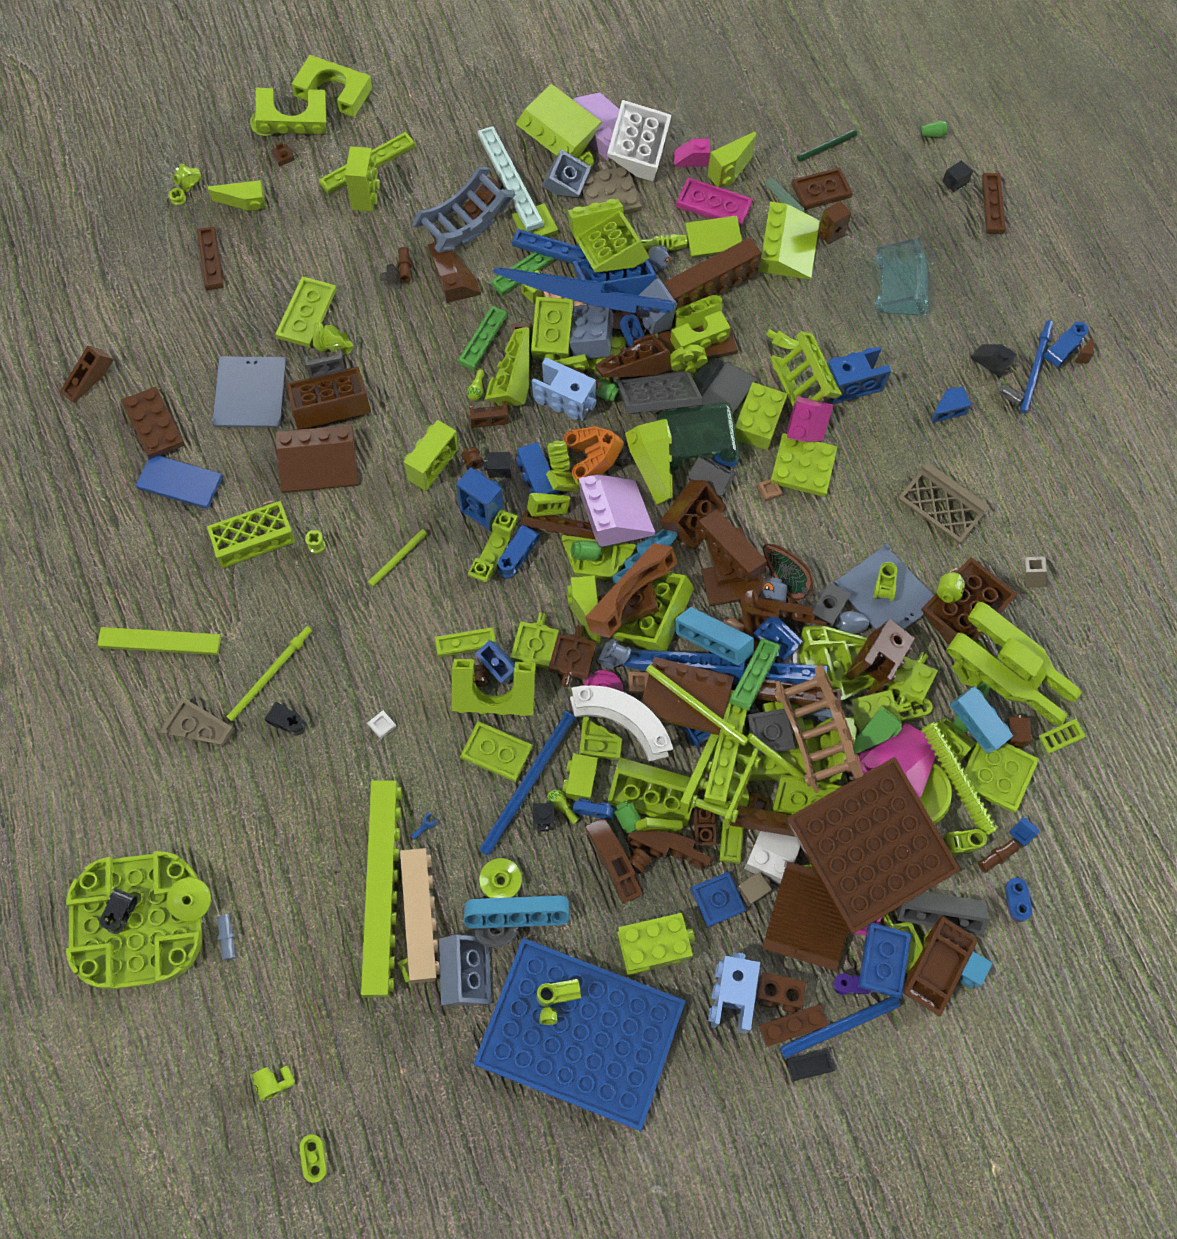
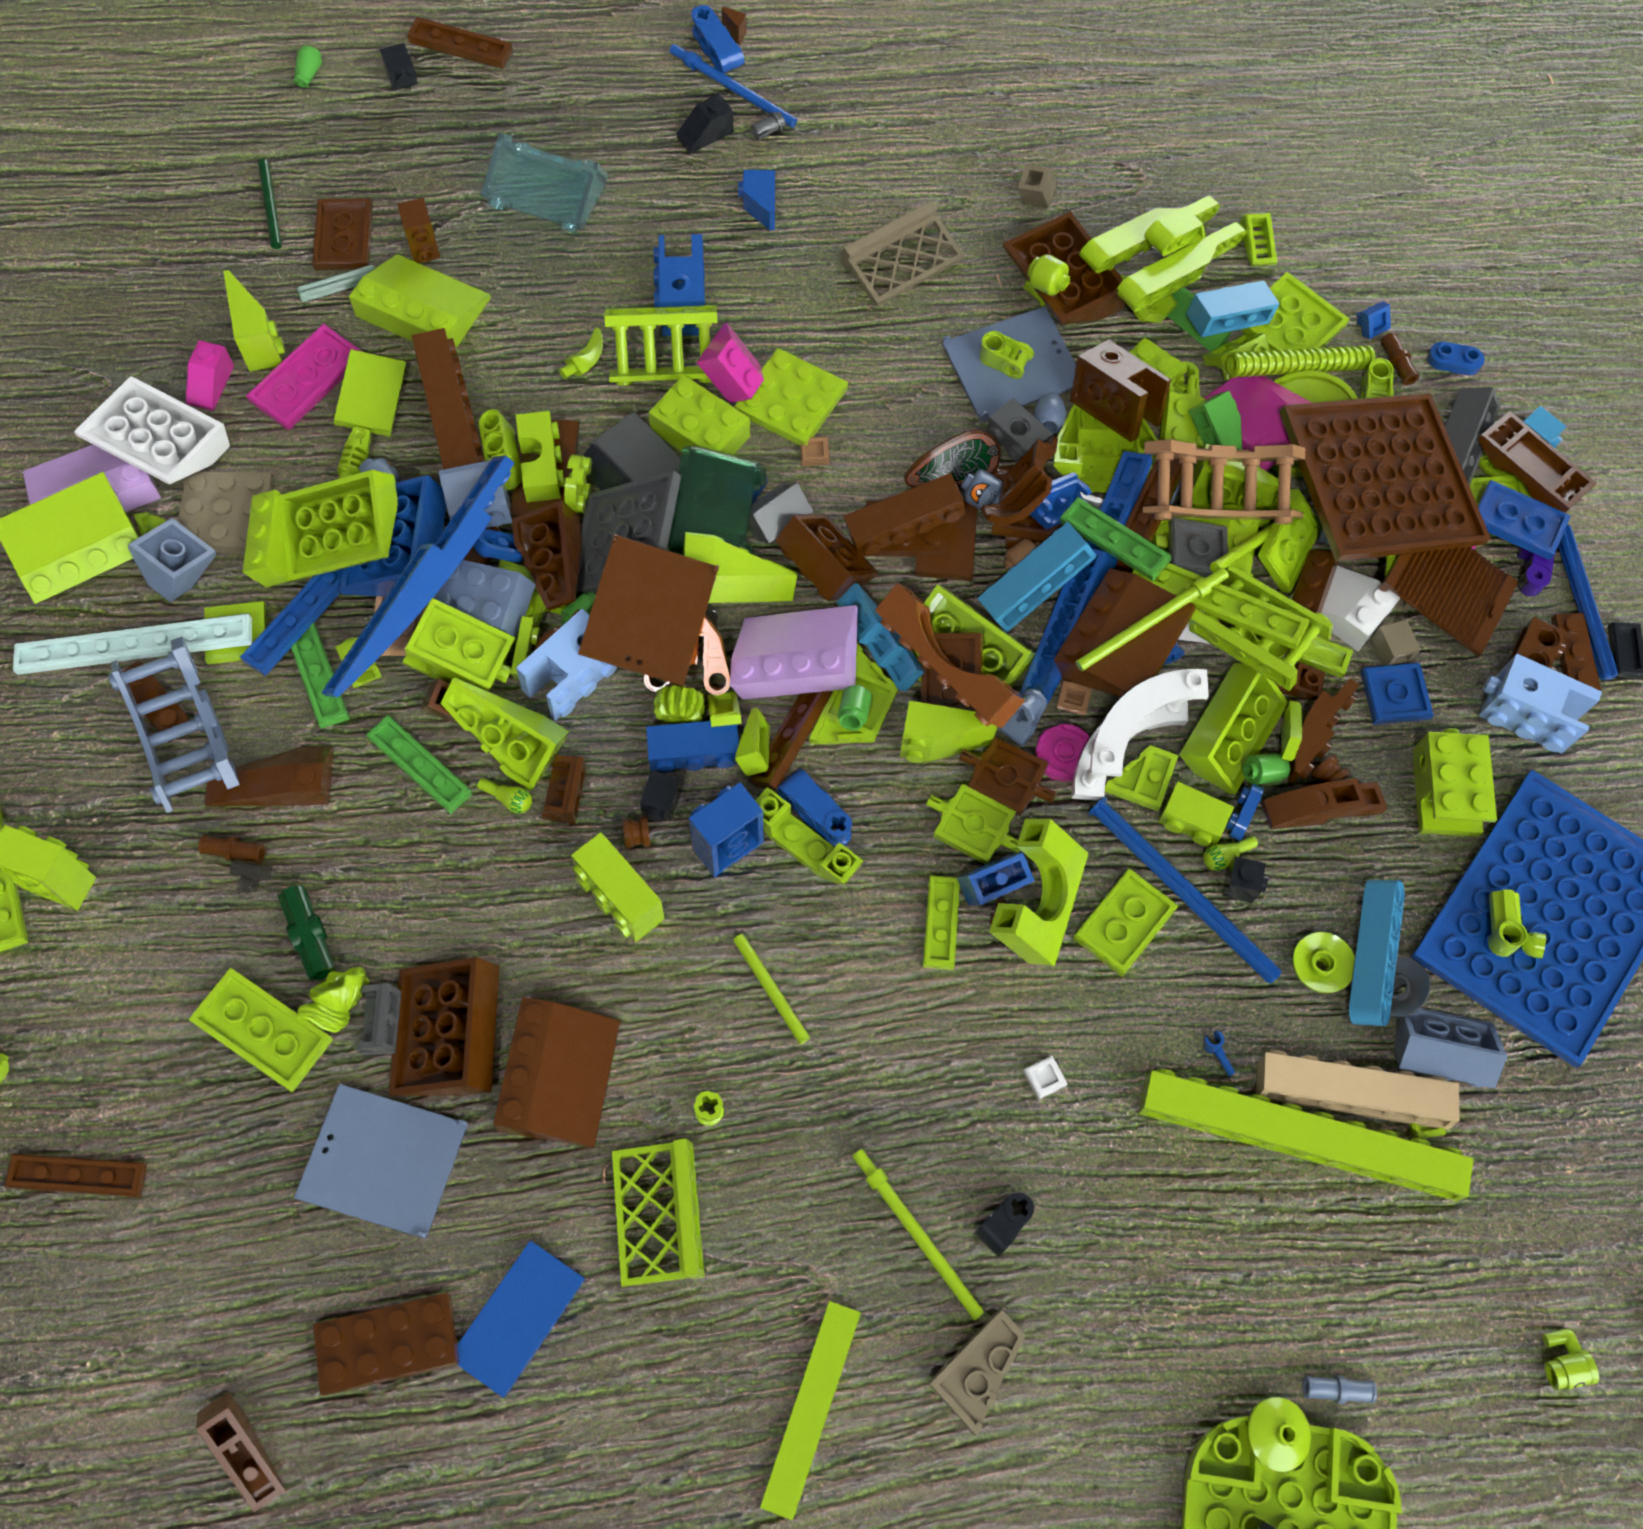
camera: 75 degrees left, 0 degrees up
(366, 314) = (306, 932): none -> dark green piece
(603, 412) = (648, 610): none -> reddish brown door
(1020, 730) = (1244, 273): reddish brown brick -> none

